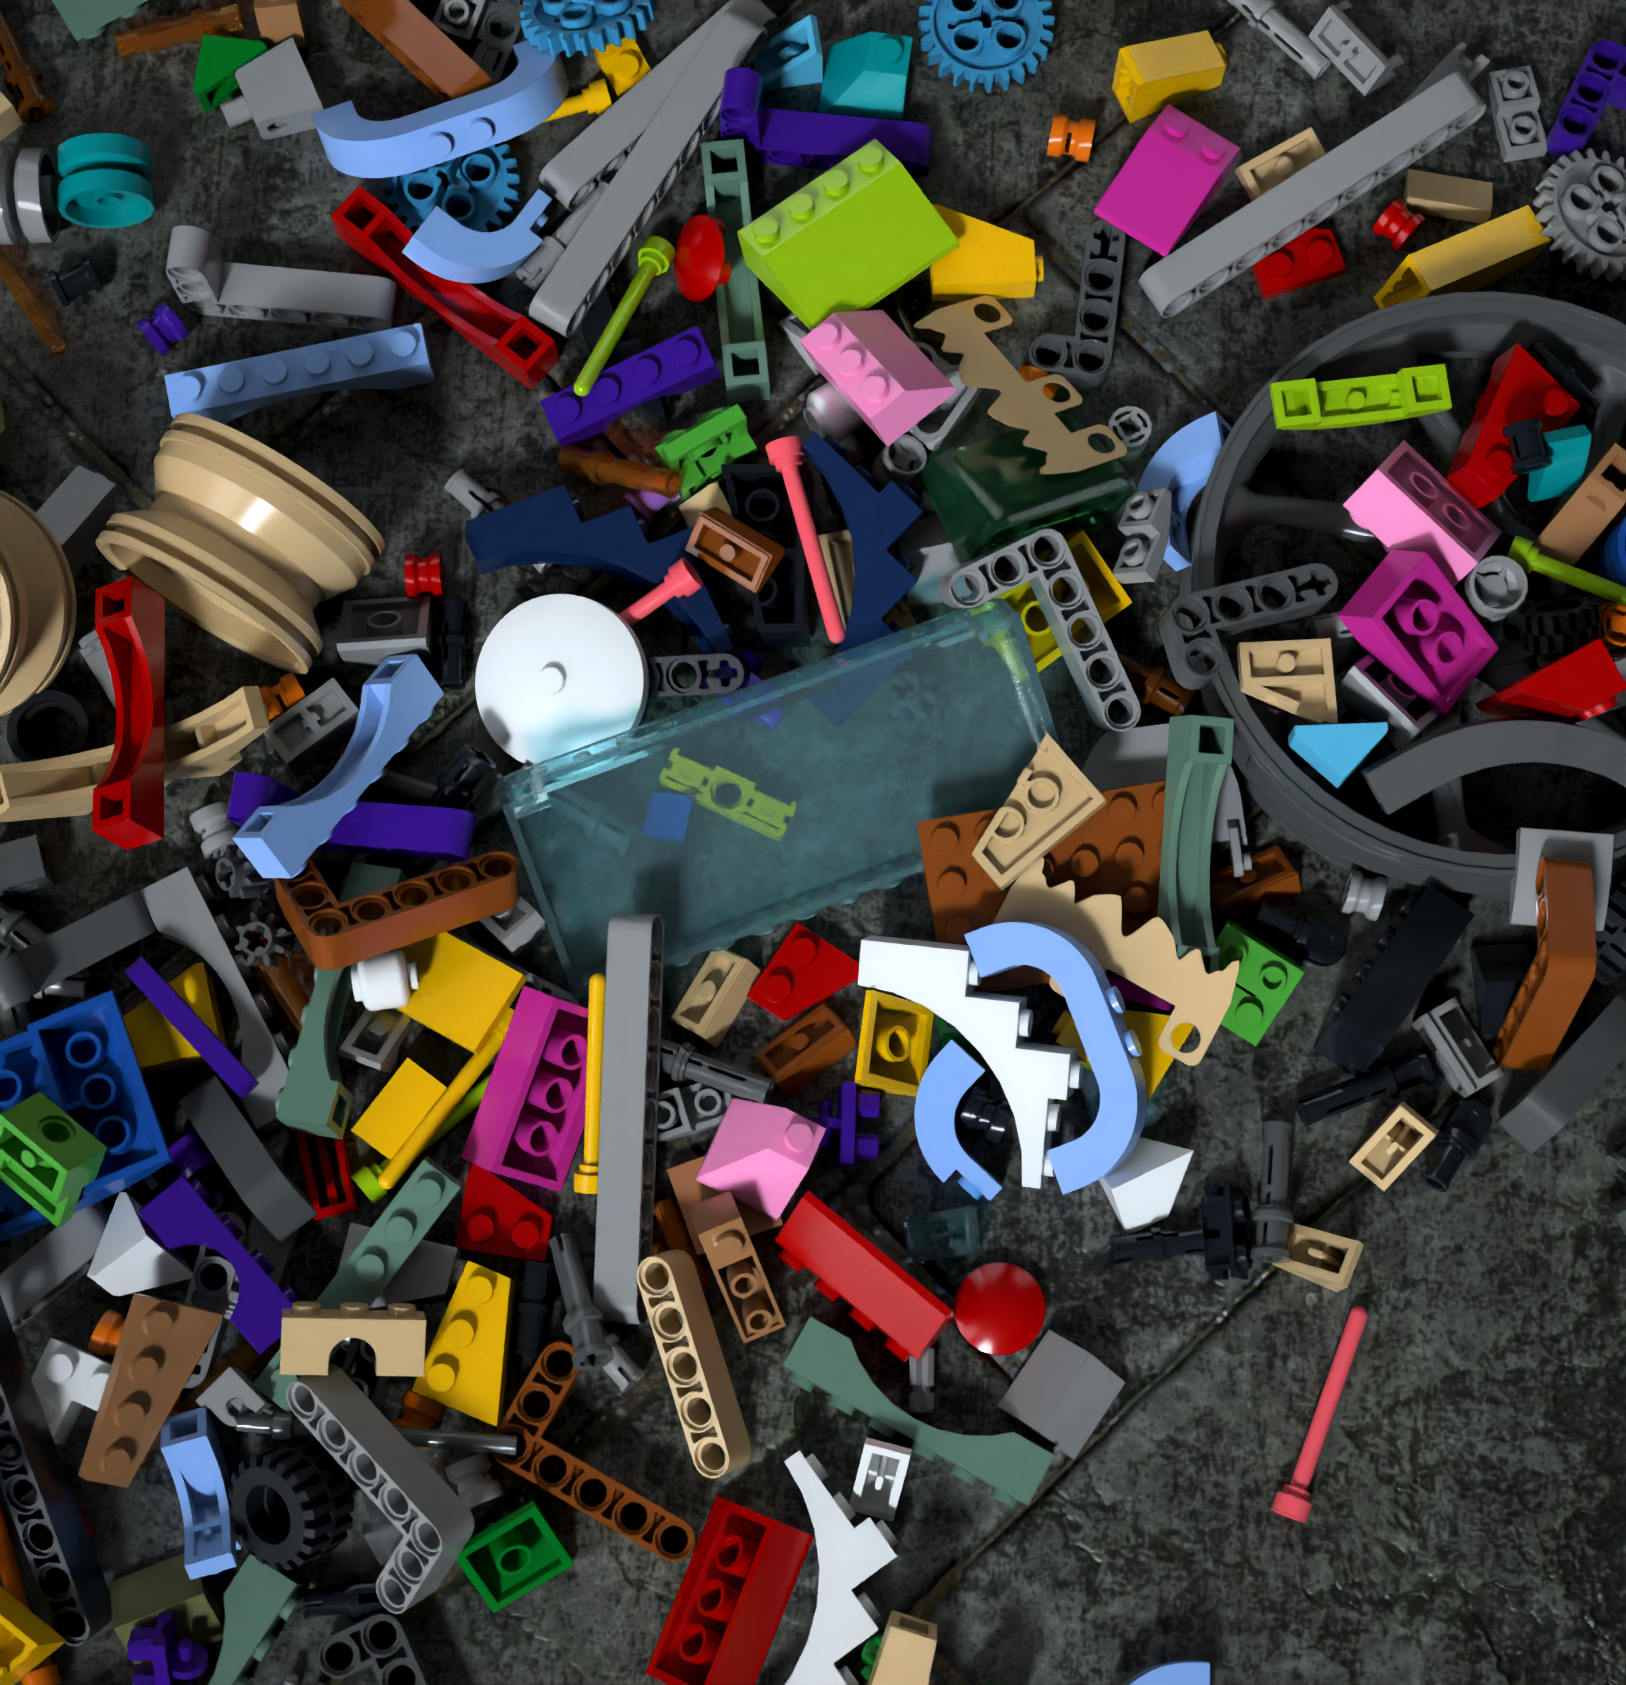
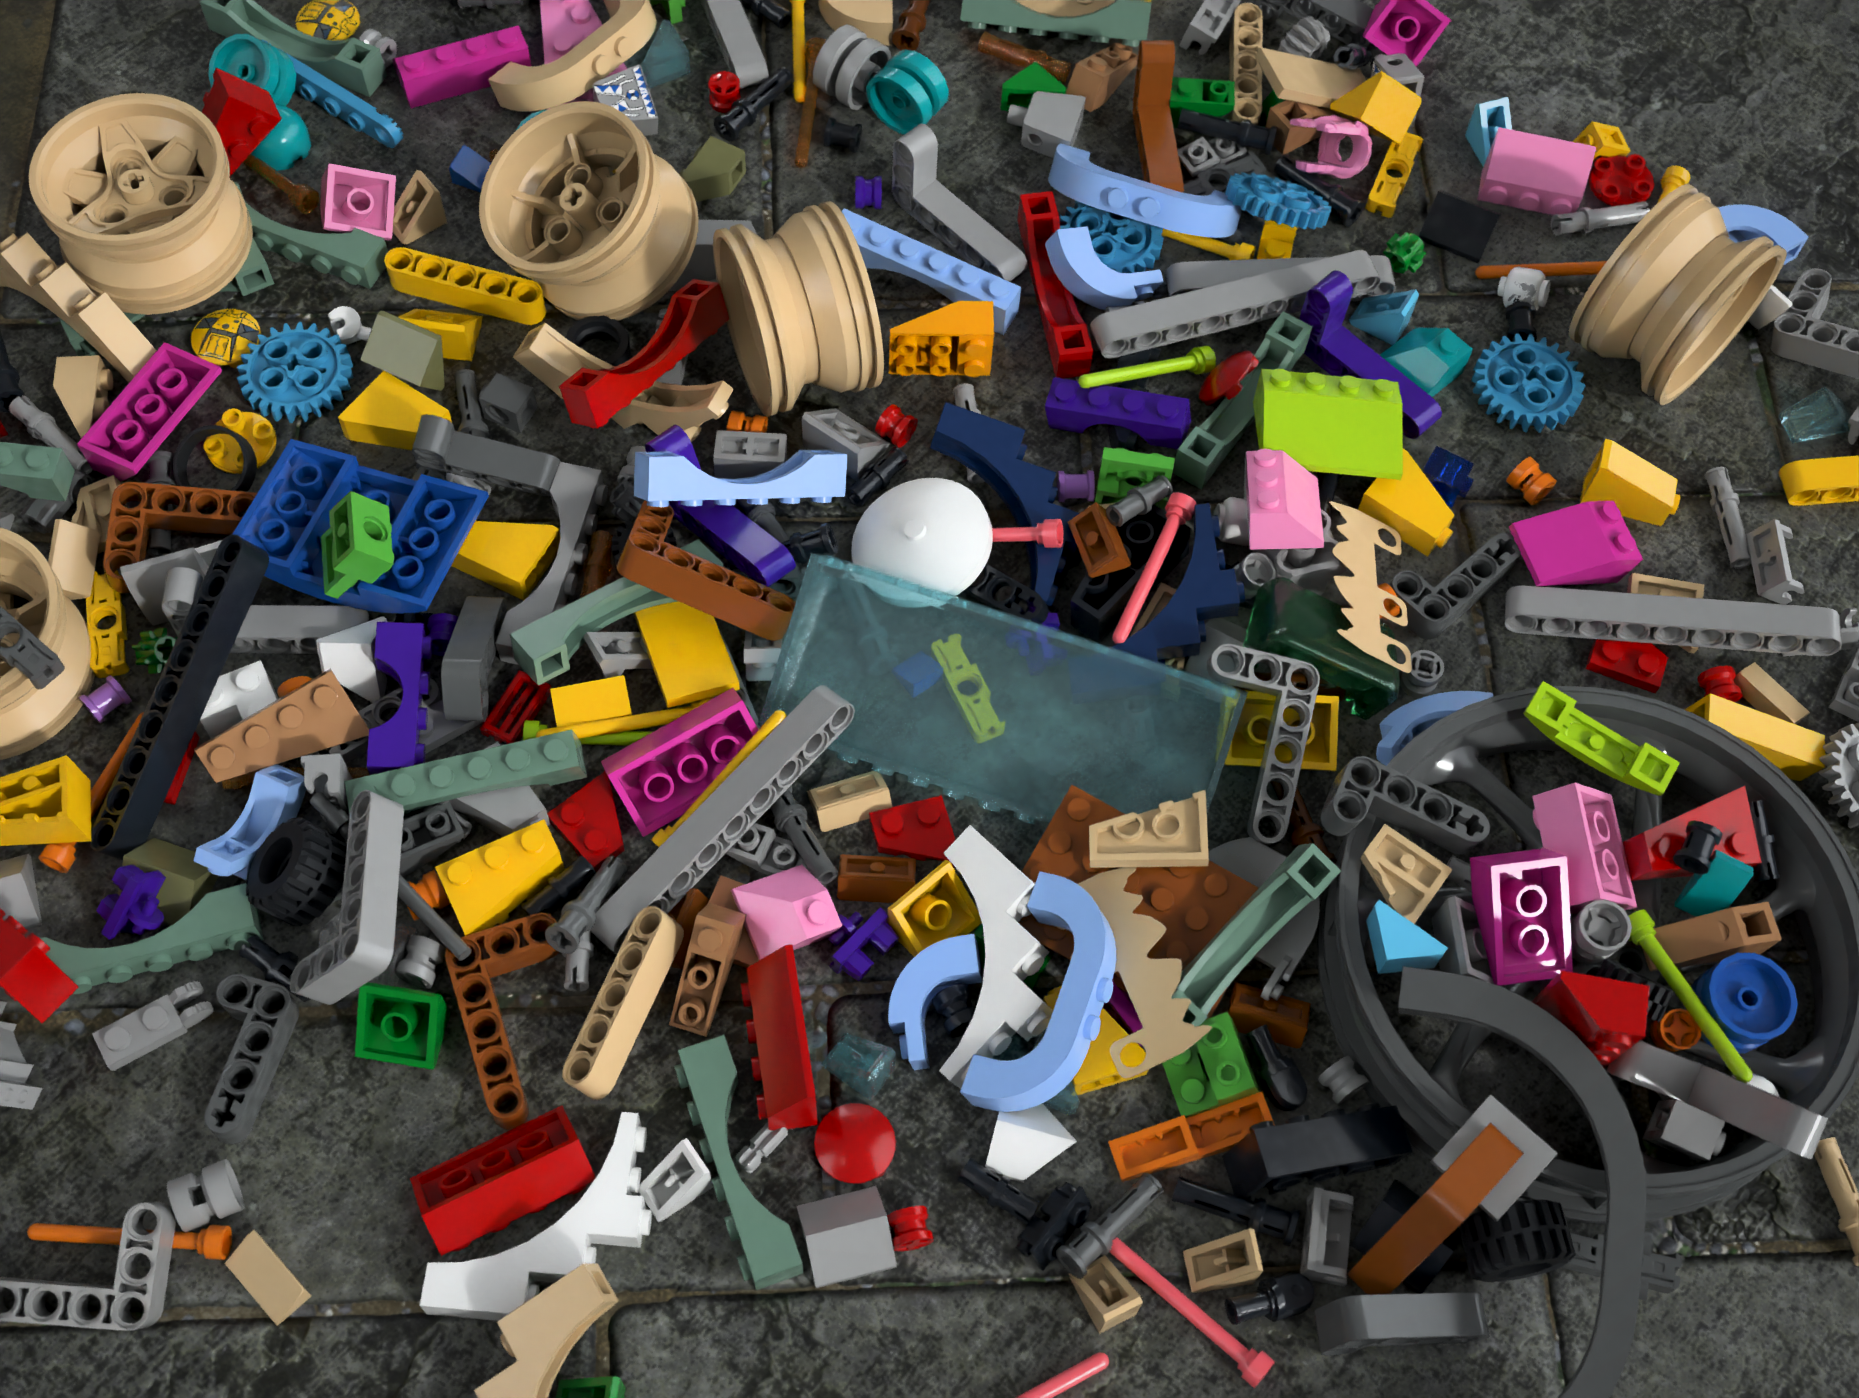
camera: 35 degrees right, 15 degrees down
(191, 1027) = (514, 553): dark purple beam -> none
(276, 936) = (604, 540): dark grey gear -> none
(312, 1333) = (451, 820): tan arch -> none
(384, 981) = (652, 616): white head -> none
(405, 437) = (945, 342): none -> light orange slope
(604, 468) = (1061, 447): clear orange pin -> none
(738, 475) = (1139, 501): none -> dark grey pin
(990, 196) = (1449, 474): none -> clear blue brick
(1112, 1343) = (910, 1228): none -> red wheel
(1147, 531) = (1381, 730): light grey slope -> none
(1277, 1056) = (1188, 1138): none -> orange slope
(1482, 1211) = (1251, 1363): none -> coral piece

